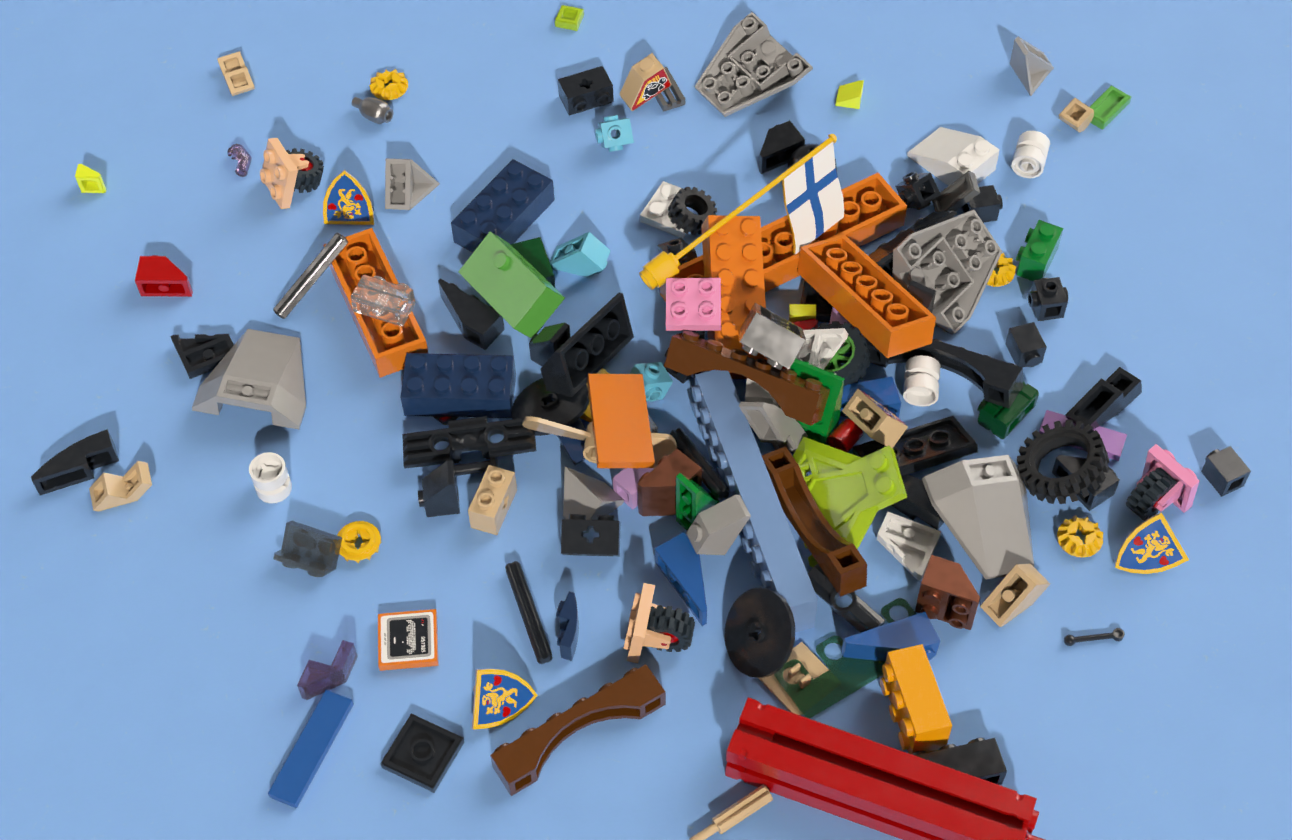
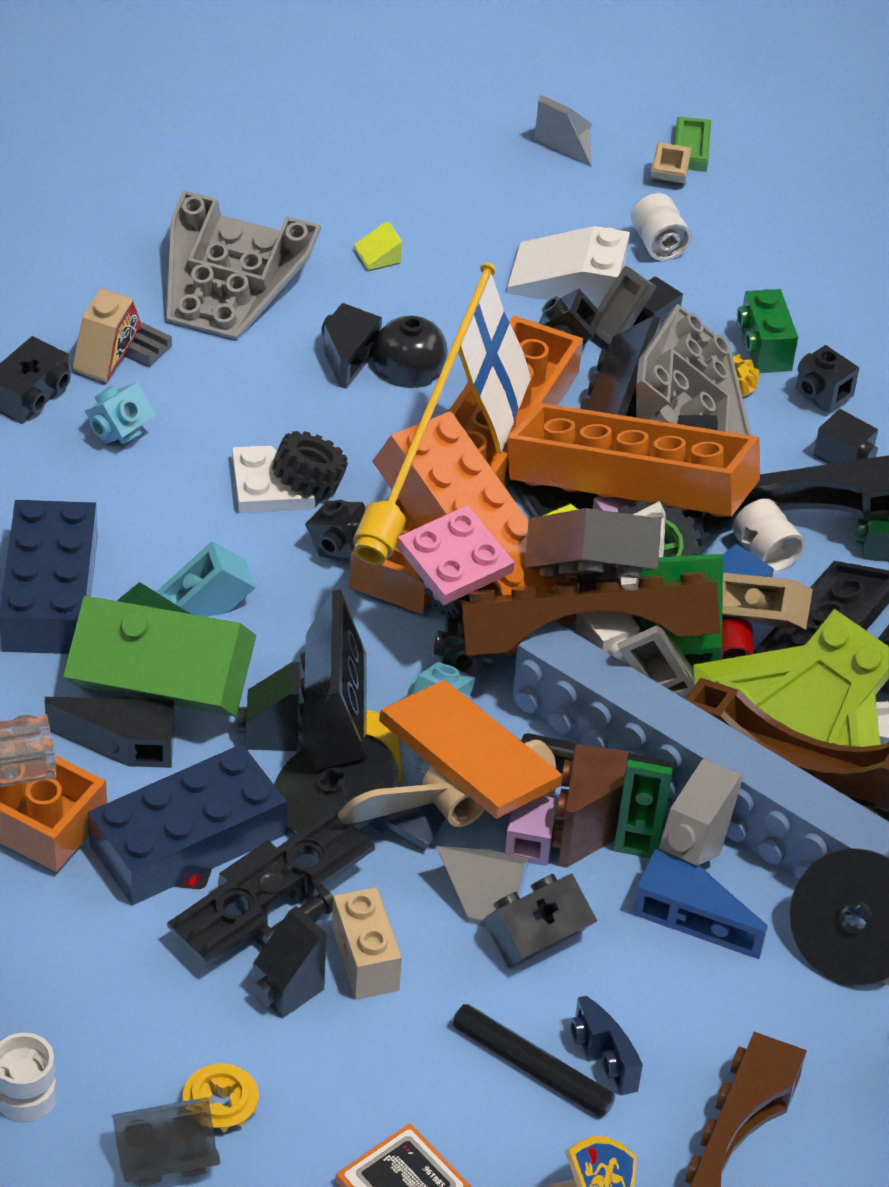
camera: 40 degrees left, 10 degrees down
(656, 626) = (718, 982): plate -> none

